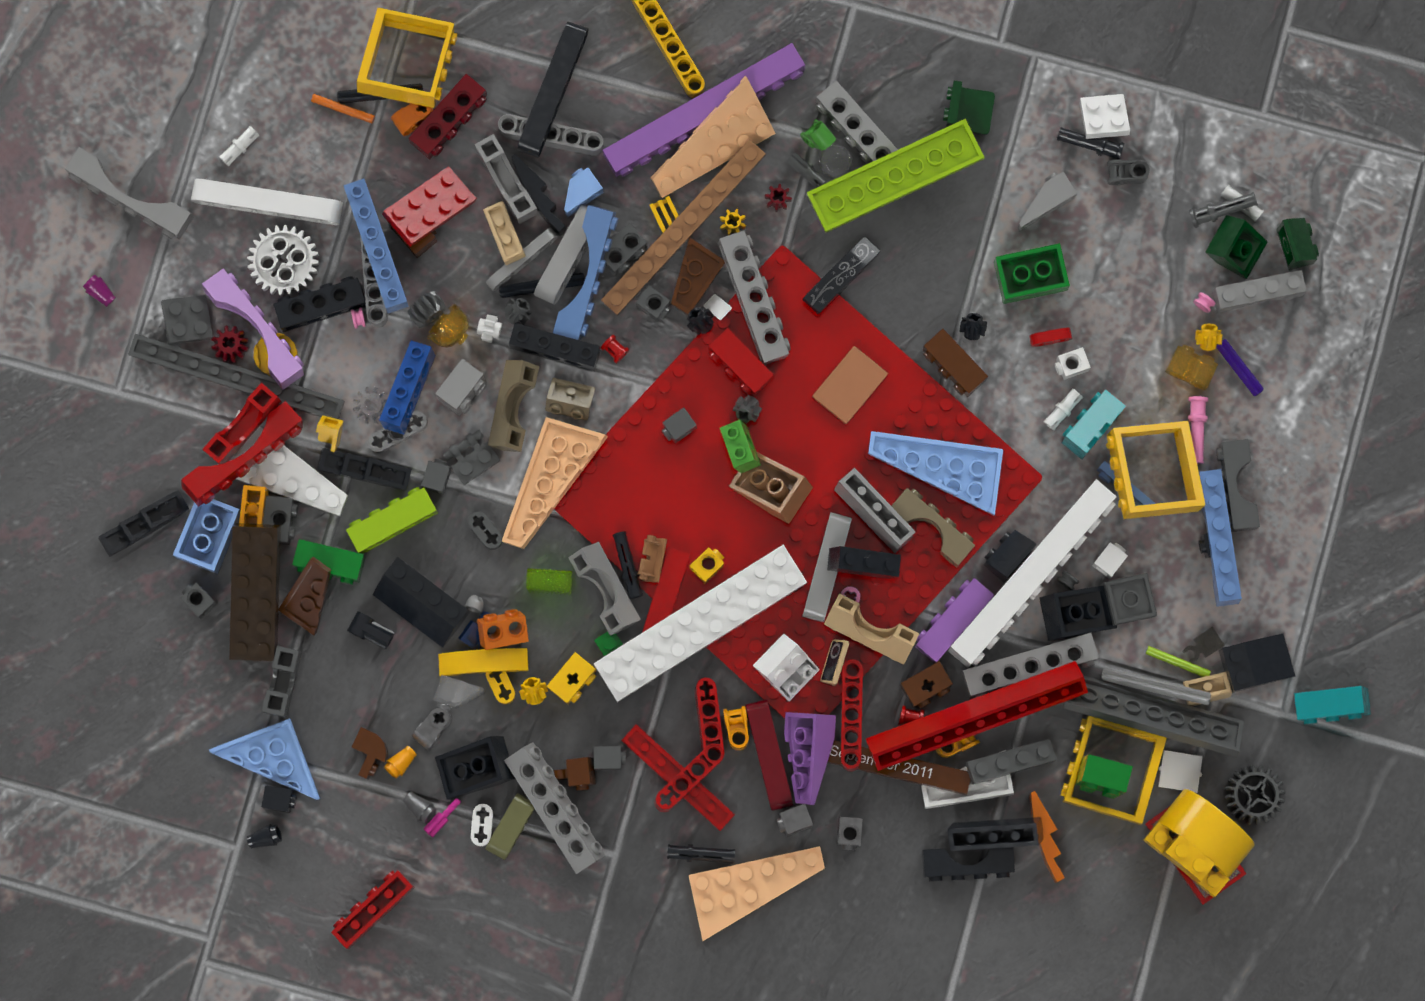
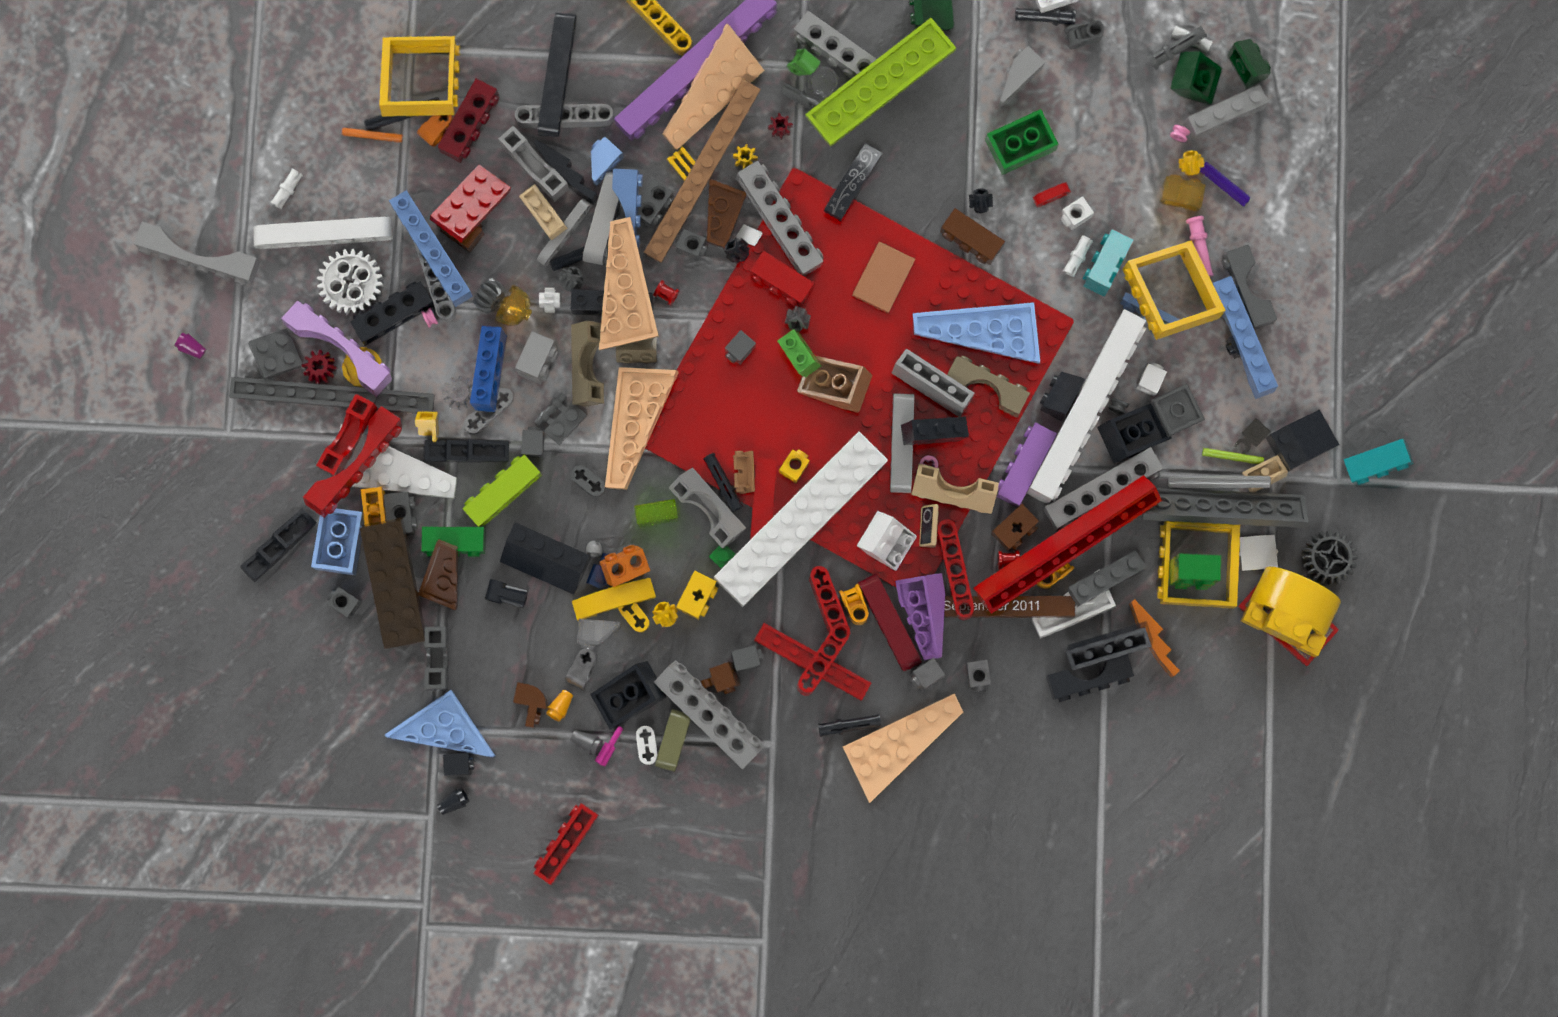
camera: 15 degrees left, 0 degrees up
(569, 349) = (626, 300): none -> light nougat wing

